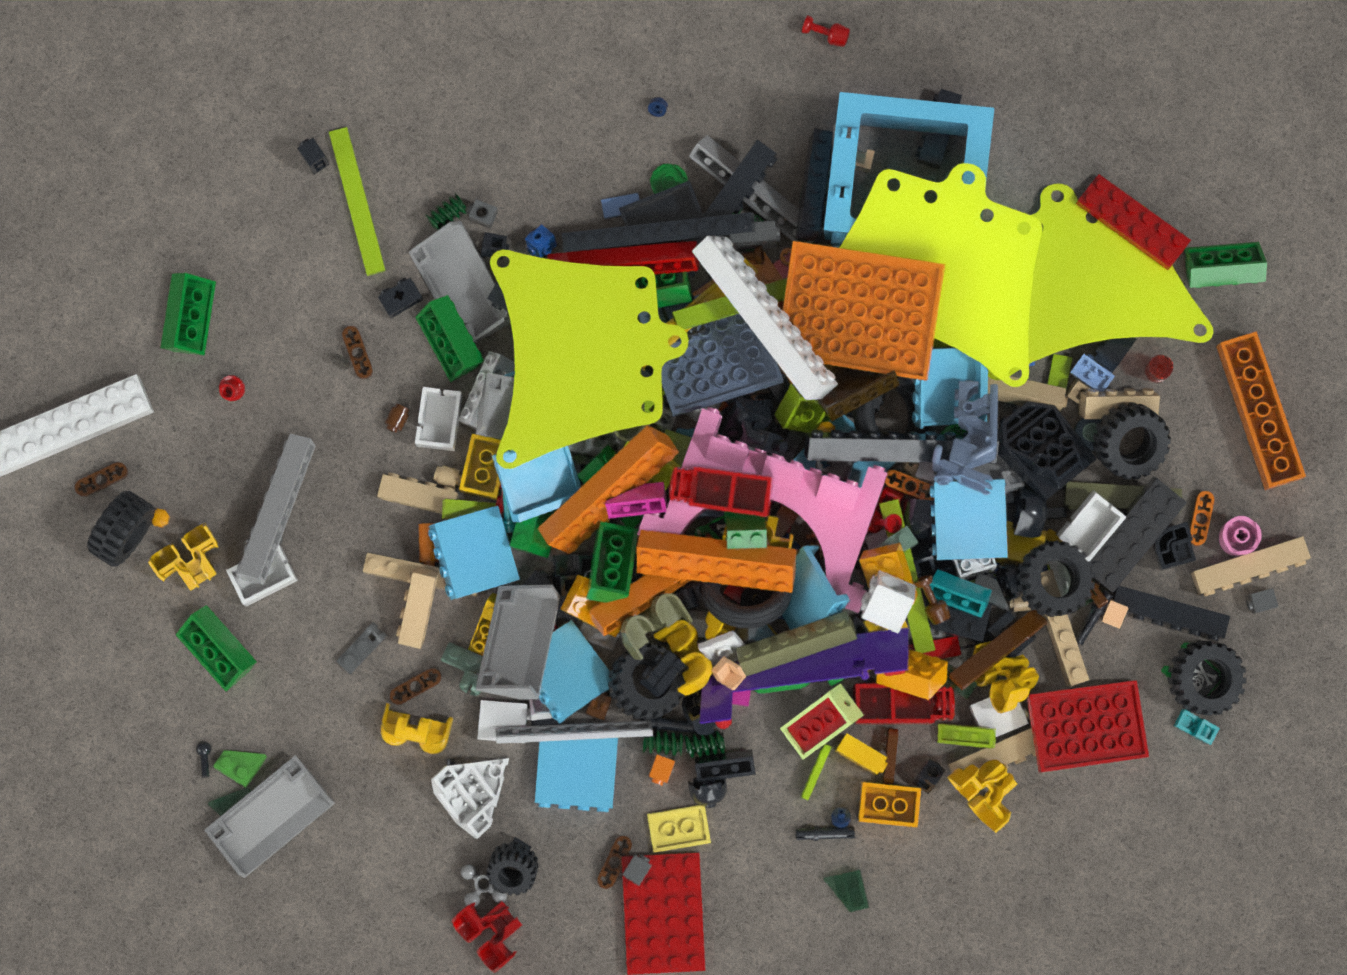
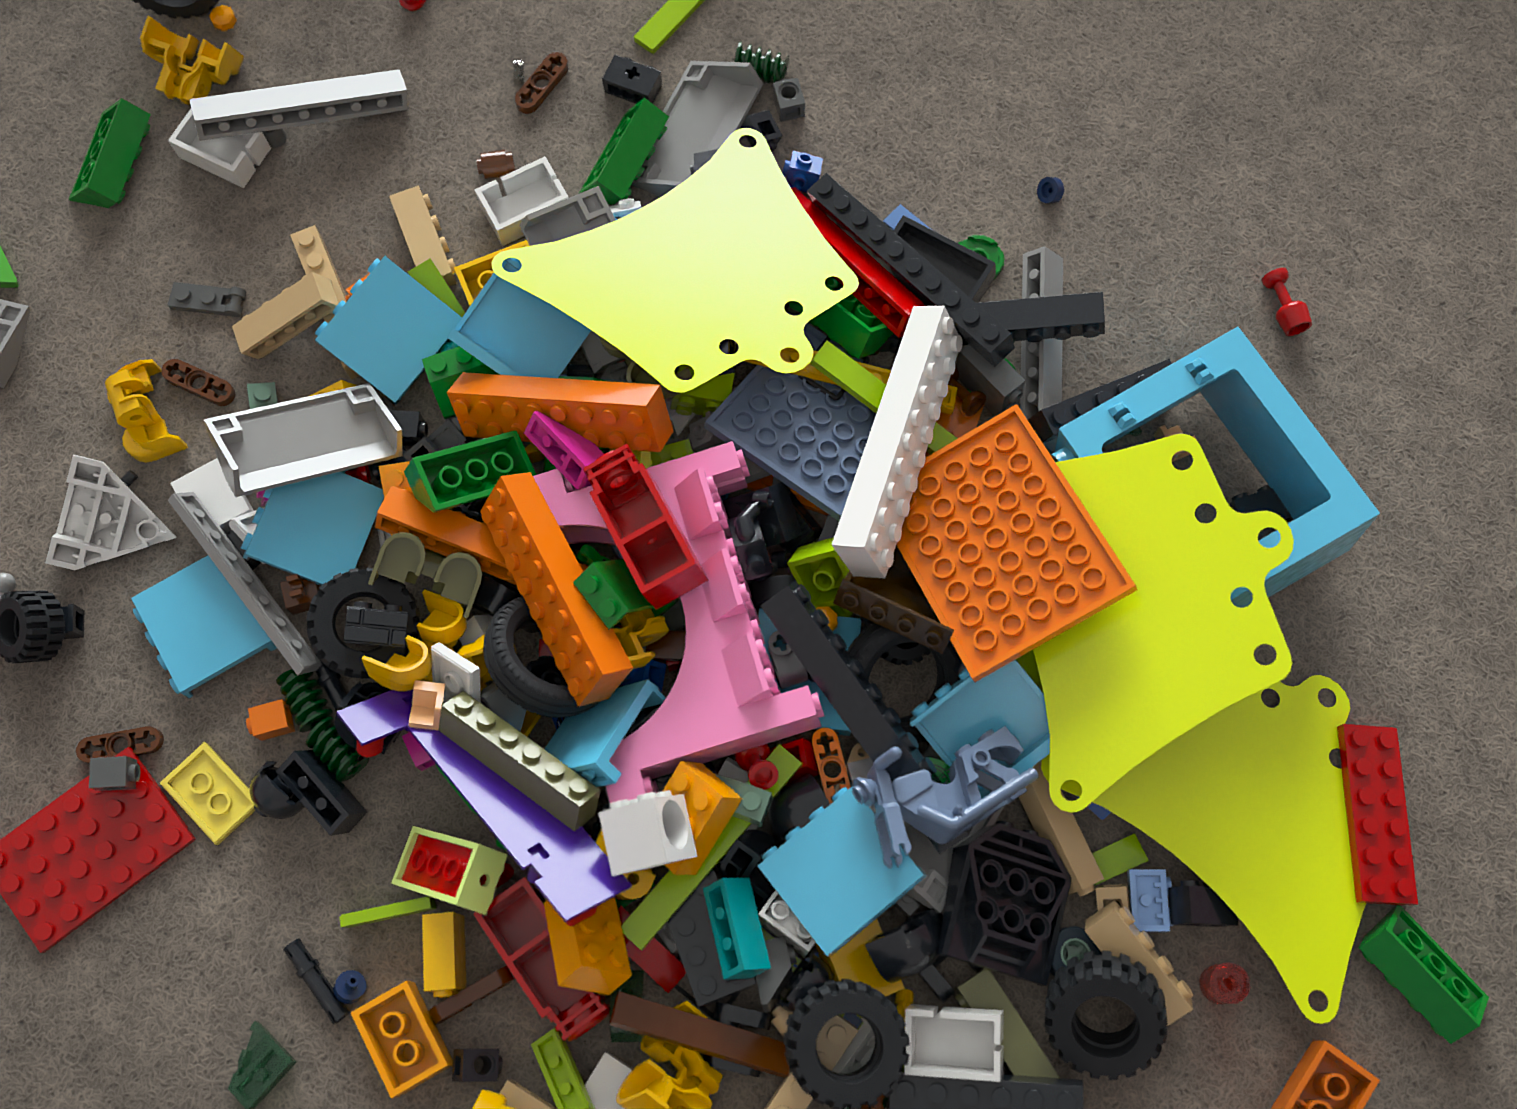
camera: 55 degrees right, 10 degrees down
(447, 476) = (464, 250): tan brick -> none
(936, 609) = (692, 912): reddish brown piece -> none

